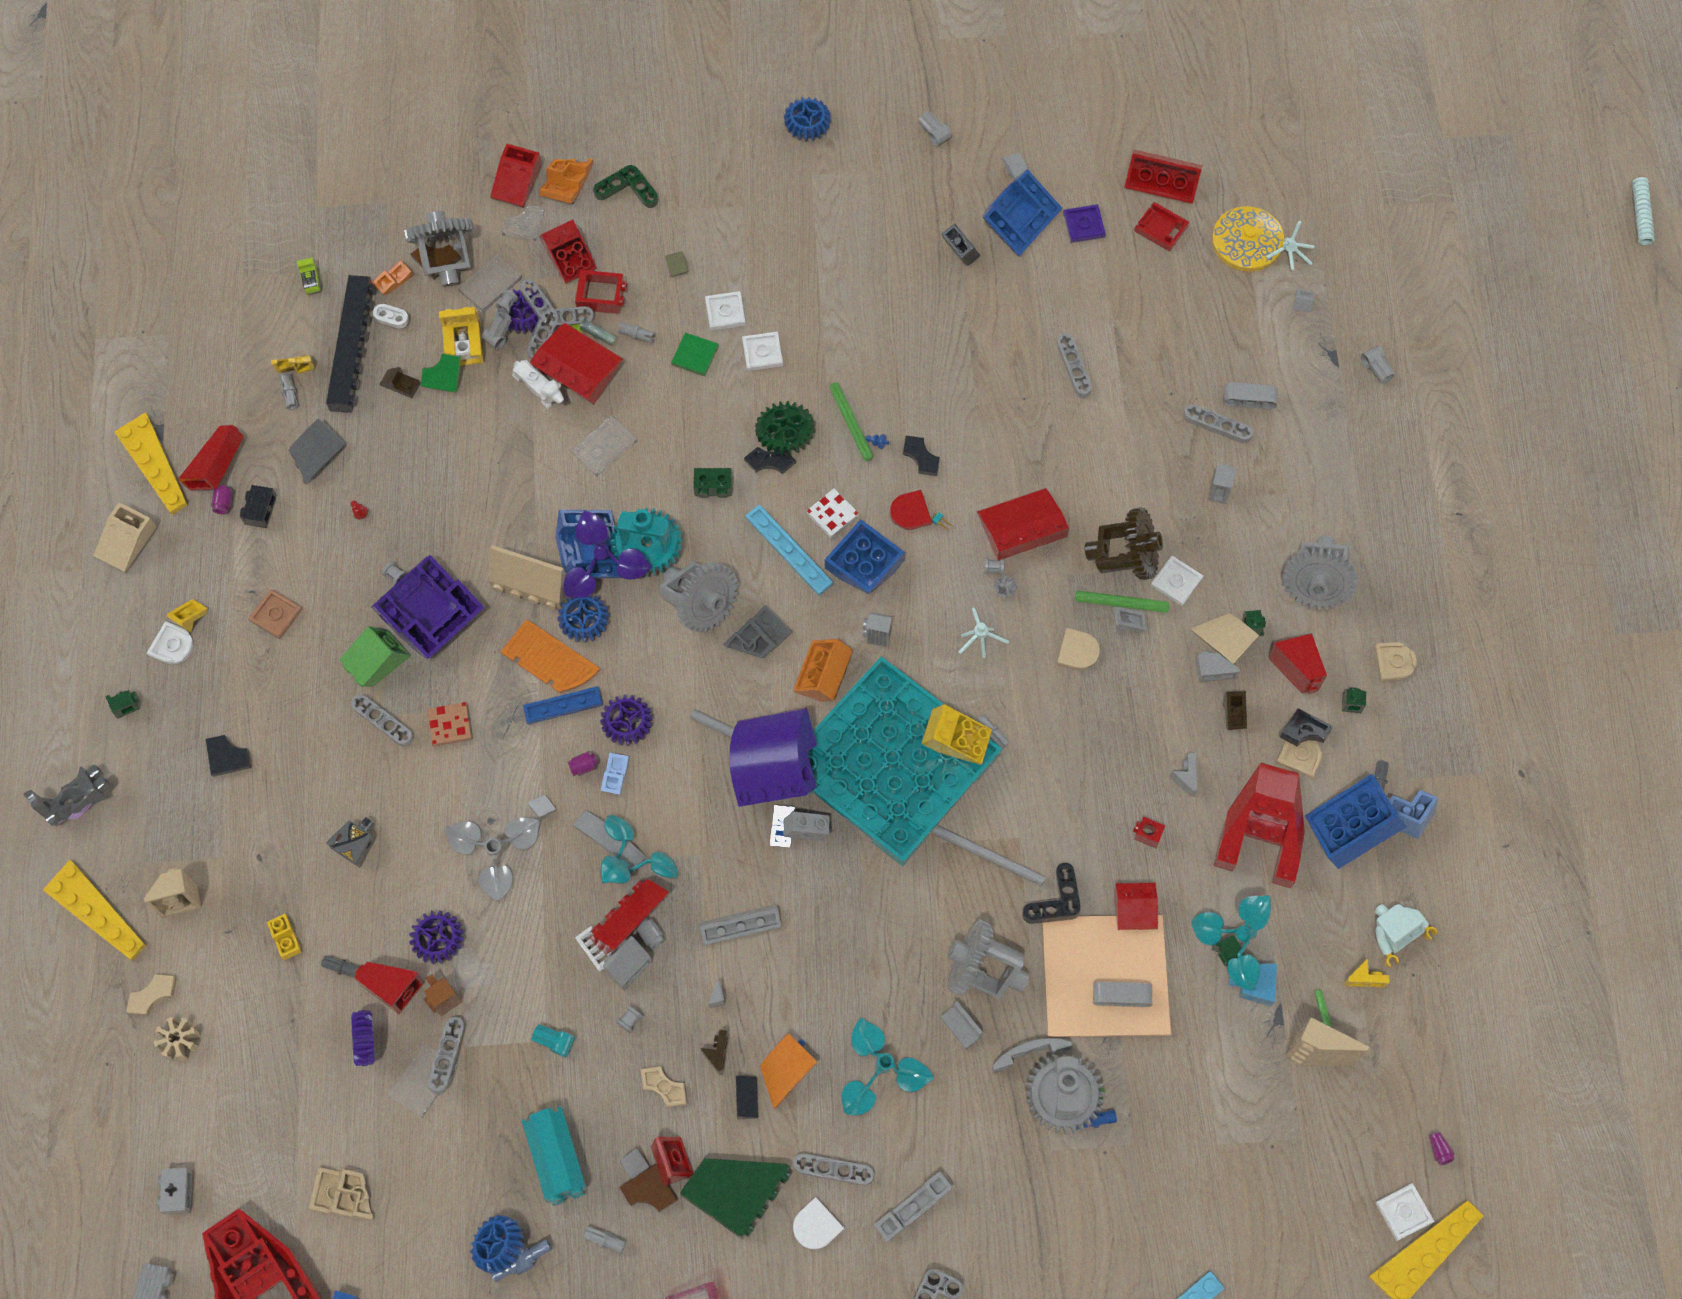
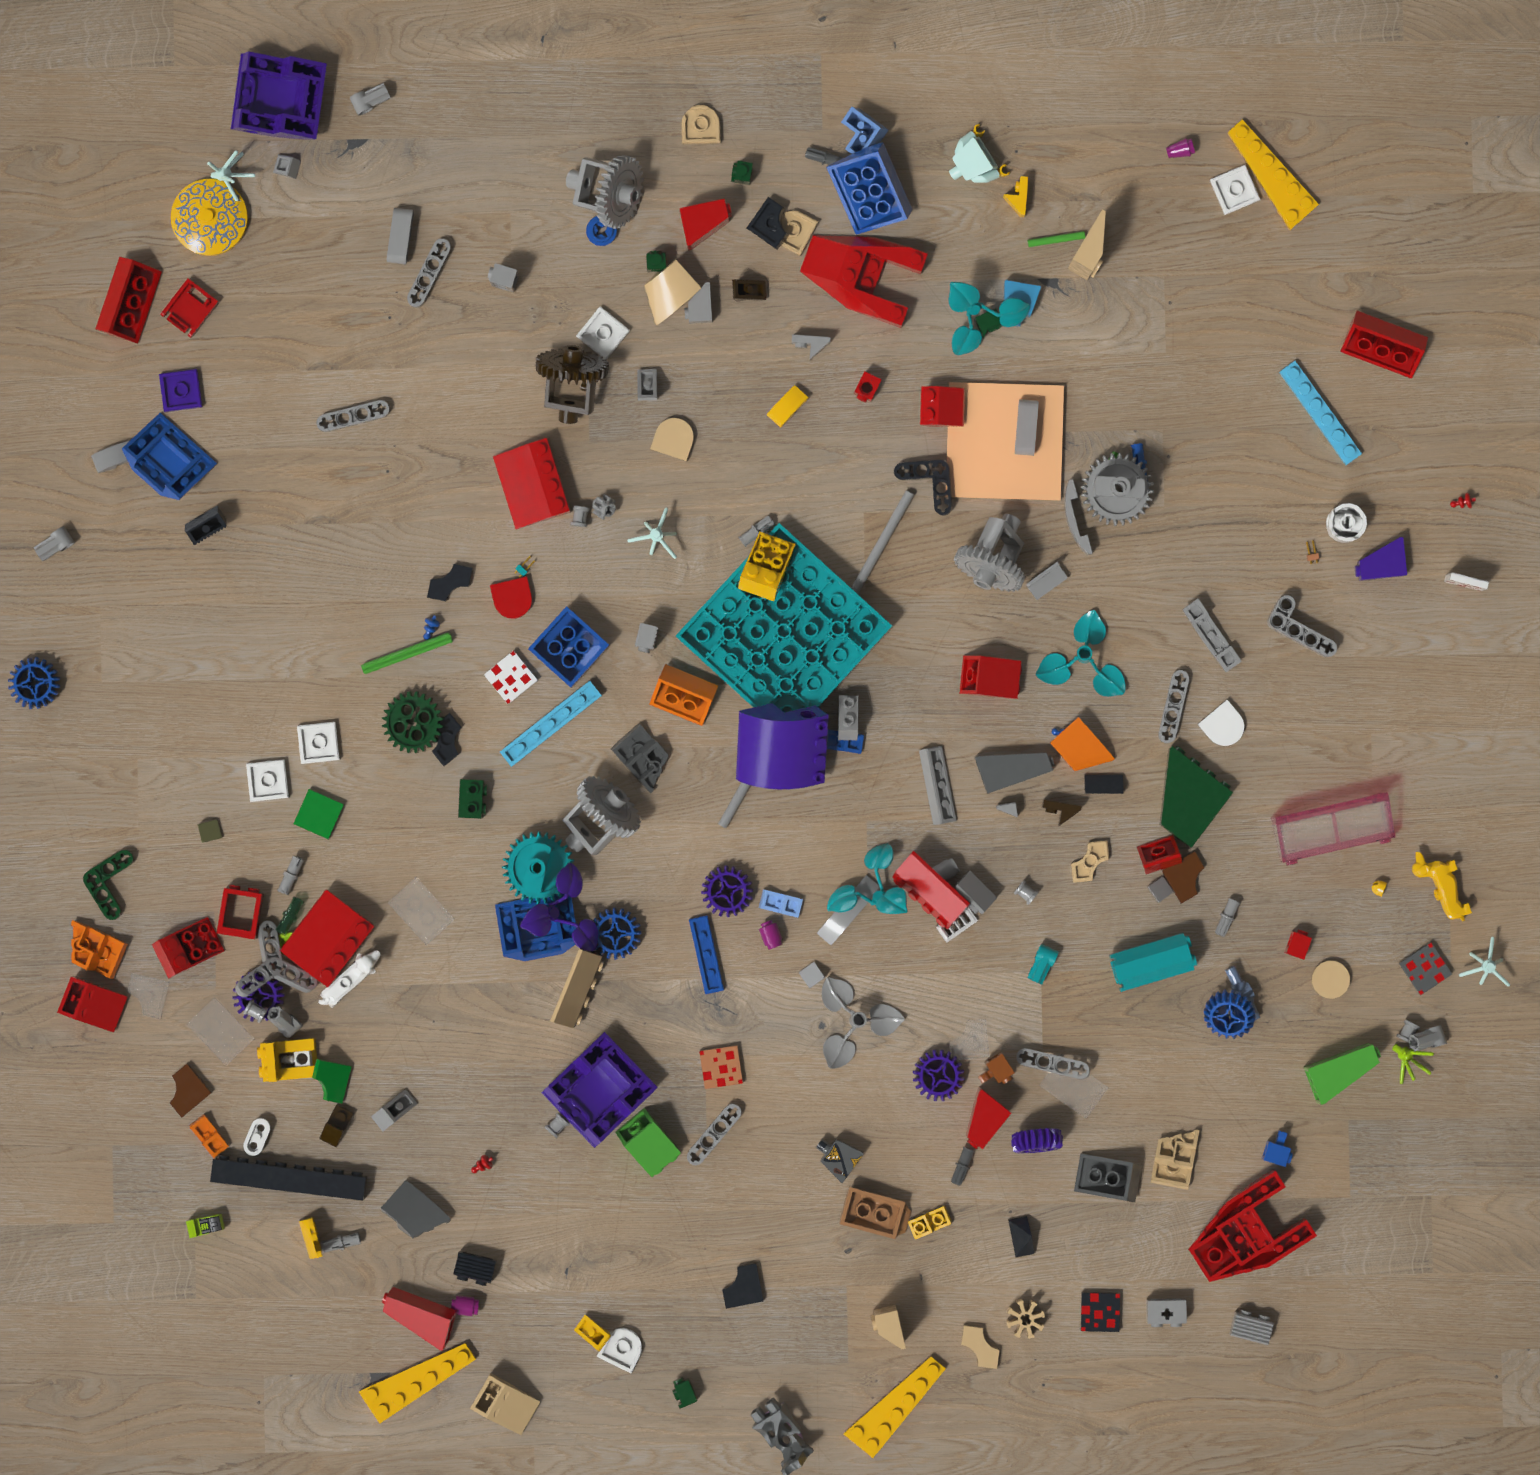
camera: 90 degrees left, 20 degrees up
(180, 1120) = (1100, 1312): none -> black tile
(265, 1033) = (1021, 1236): none -> black slope
(275, 614) = (593, 1245): nougat tile -> none
(294, 879) = (874, 1213): none -> medium nougat slope
(322, 1121) = (1107, 1177): none -> dark grey slope
(412, 429) = (394, 1110): none -> light grey slope
(440, 227) = (165, 1081): light grey piece -> none
(548, 658) = (654, 969): orange piece -> none
(758, 994) = (1007, 770): none -> dark grey slope
(855, 972) = (990, 677): none -> red slope
(1122, 601) = (623, 390): bright green axle -> none
(1123, 755) = (787, 406): none -> yellow slope
(1268, 572) = (591, 231): none -> blue gear
(1369, 284) = (278, 96): none -> dark purple slope

